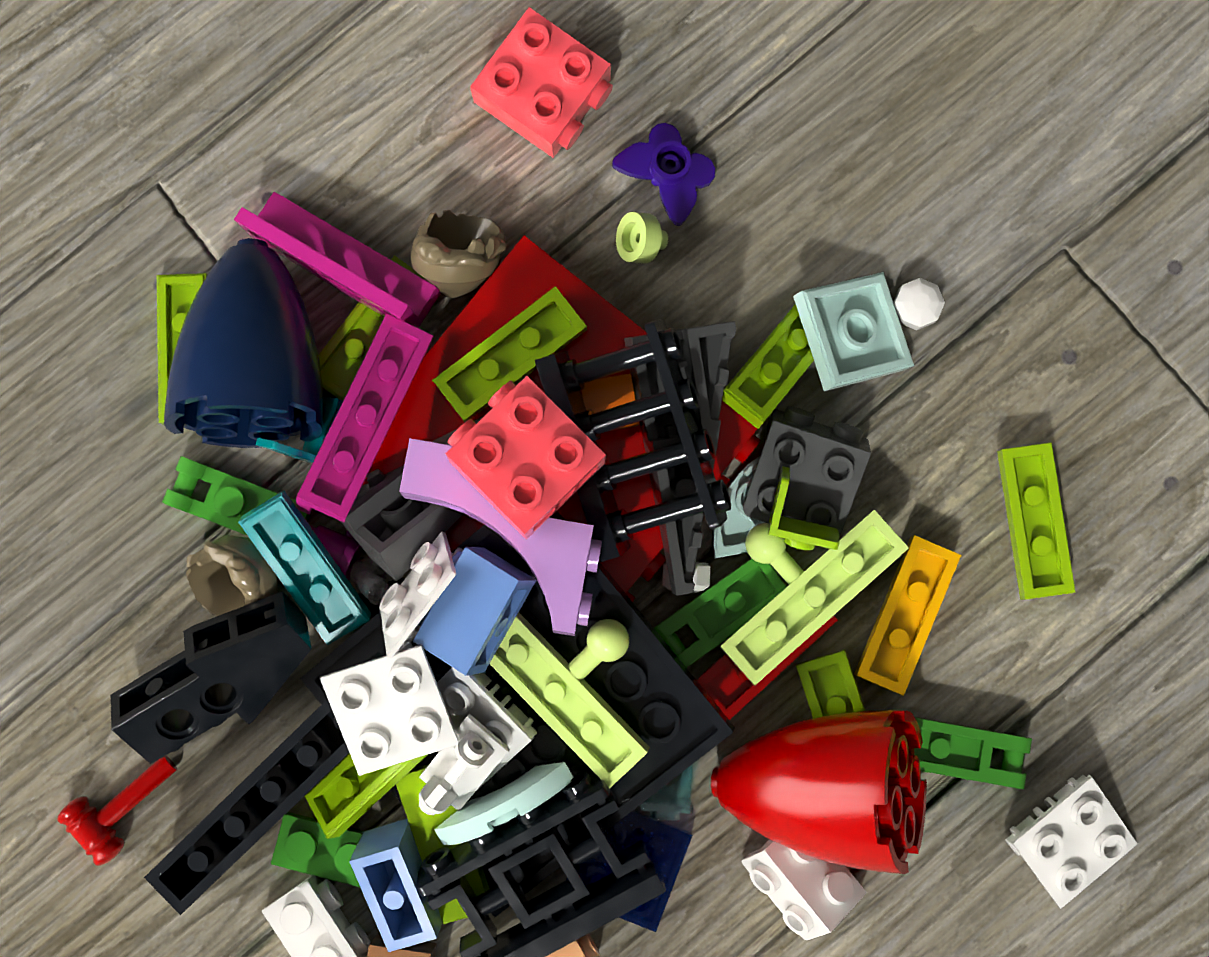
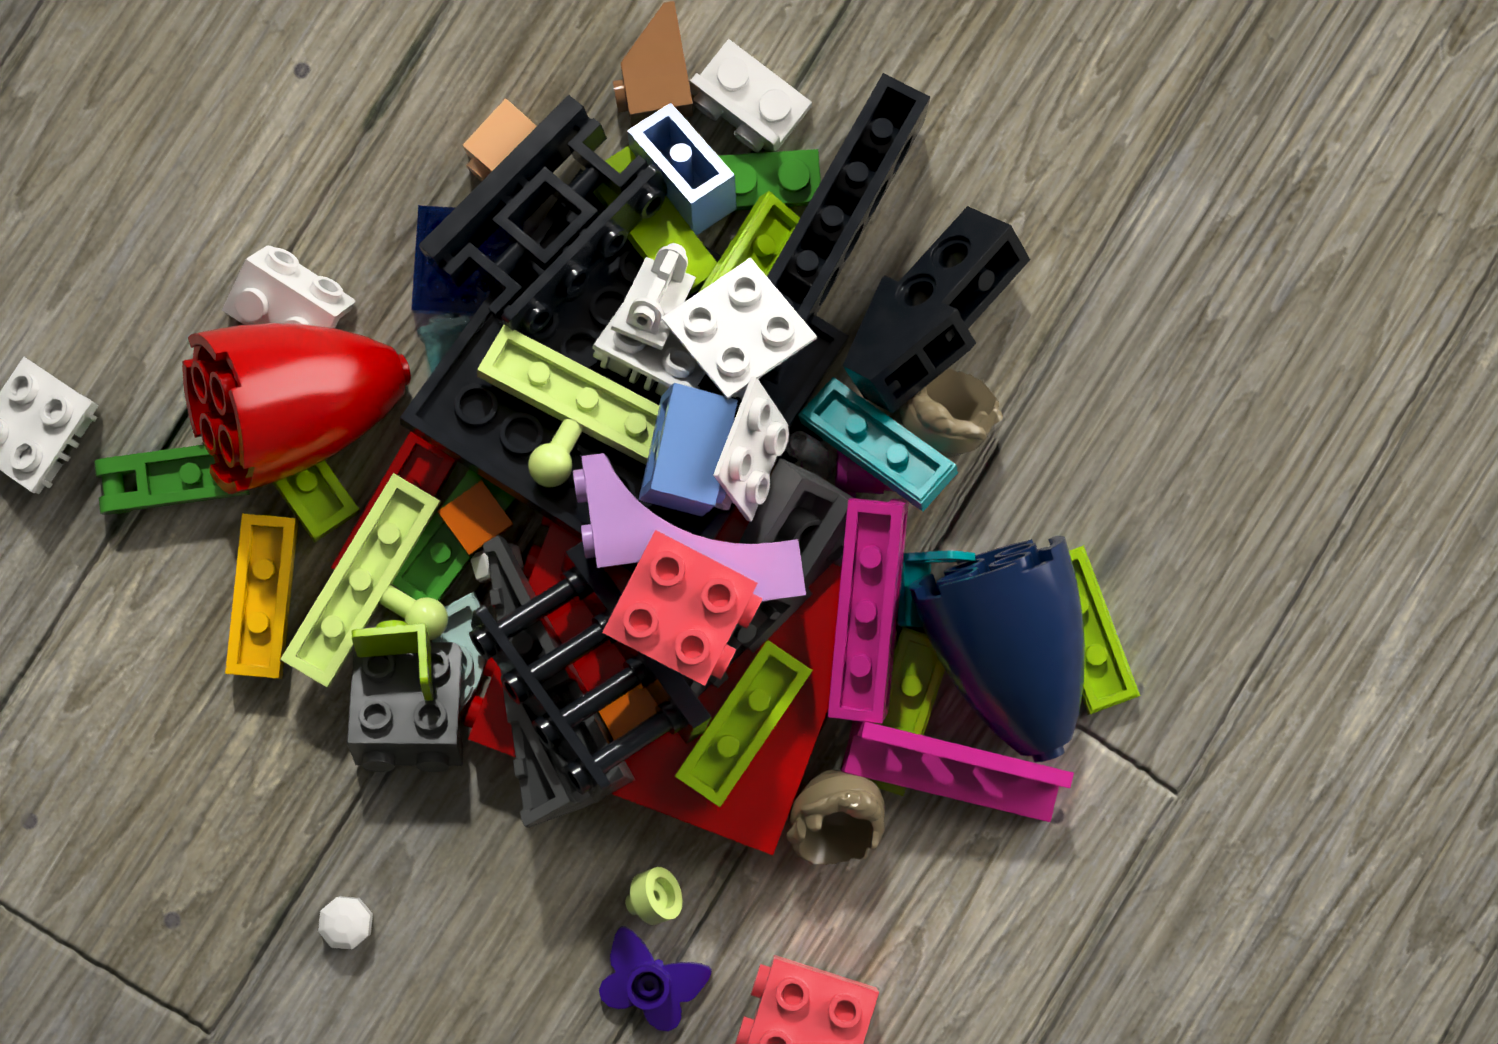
camera: 160 degrees right, 0 degrees up
(94, 829) = (1003, 127): red piece -> none
(225, 500) = (983, 491): bright green plate -> none
(504, 804) = (601, 277): light aqua tile -> none
(693, 621) = (475, 518): none -> orange tile
(770, 371) = (467, 815): lime tile -> none
(853, 331) = (403, 869): light aqua tile -> none
(1036, 521) = (158, 734): lime plate -> none

